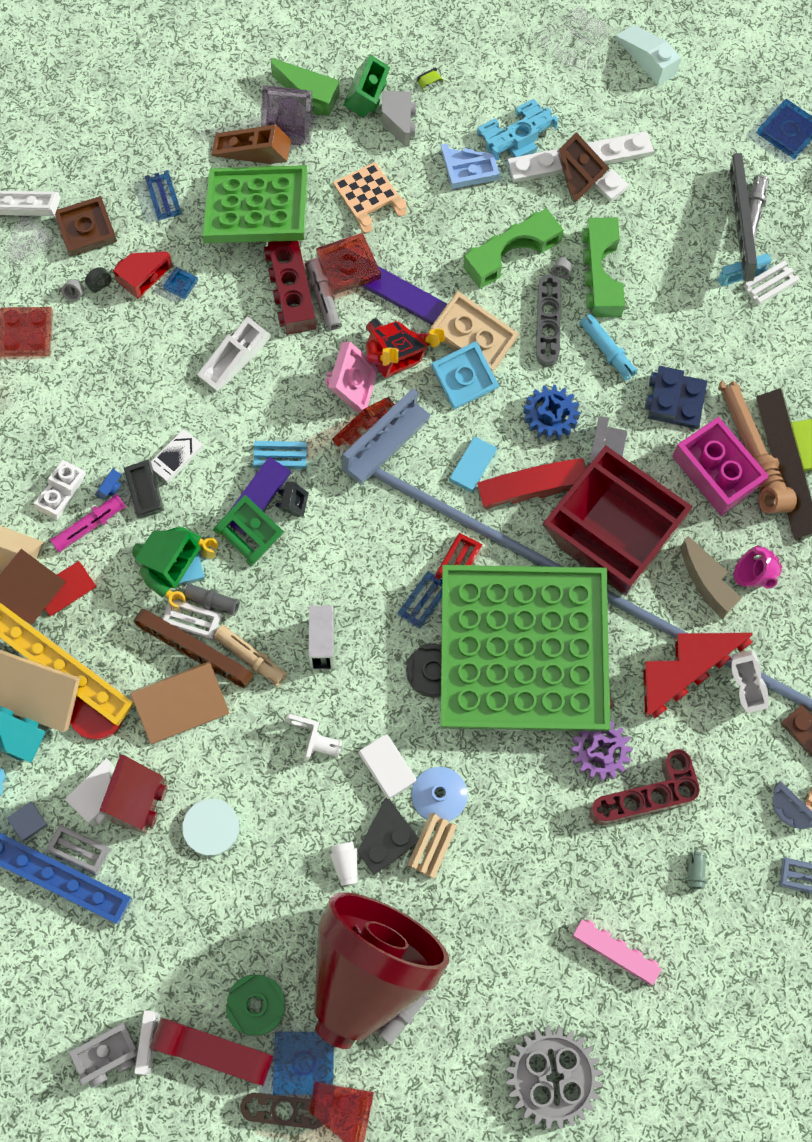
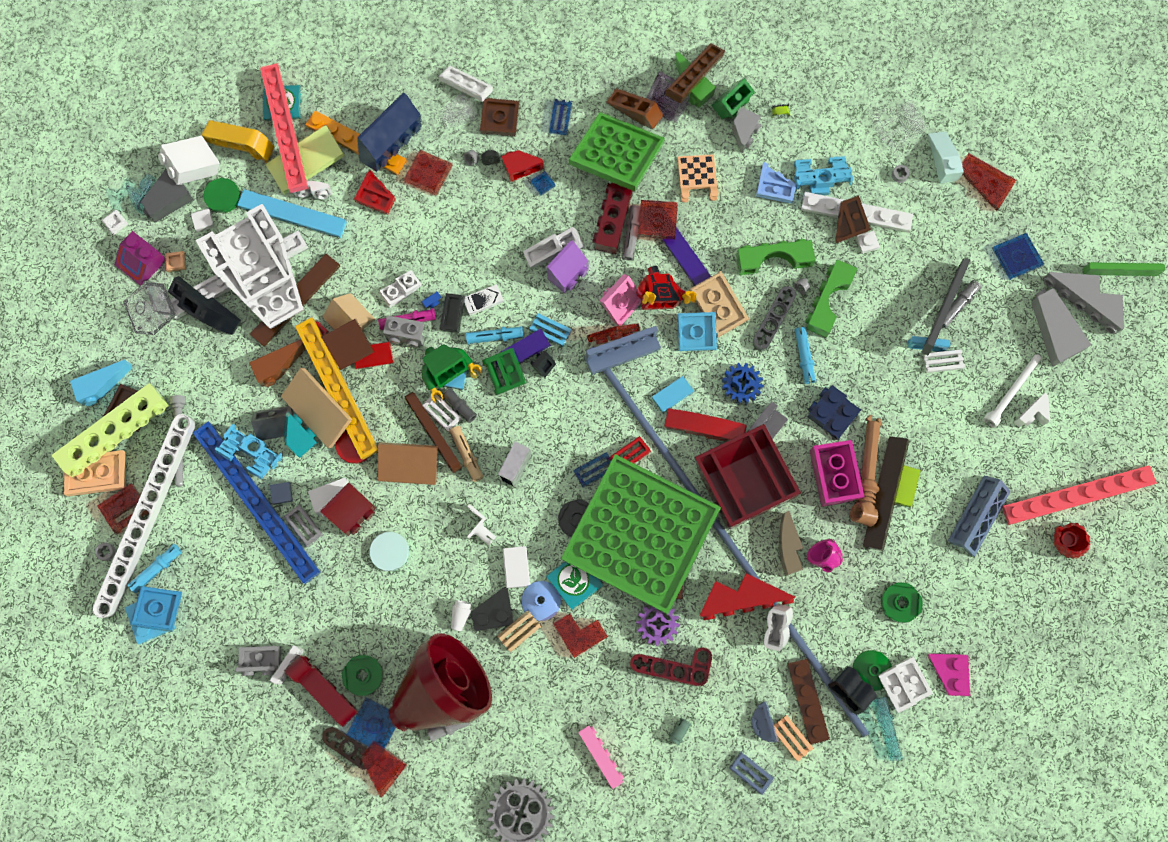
camera: 30 degrees right, 5 degrees up
(93, 538) = (404, 331): none -> light grey bracket
(222, 486) = (495, 335): none -> medium azure pin
(265, 368) = (567, 267): none -> medium lavender slope
(307, 72) = (695, 73): none -> reddish brown tile
(470, 752) = (573, 584): none -> slope
(510, 820) = (579, 640): none -> clear red plate
(603, 97) = (904, 169): none -> light grey bush
(712, 59) = (987, 180): none -> clear red wing

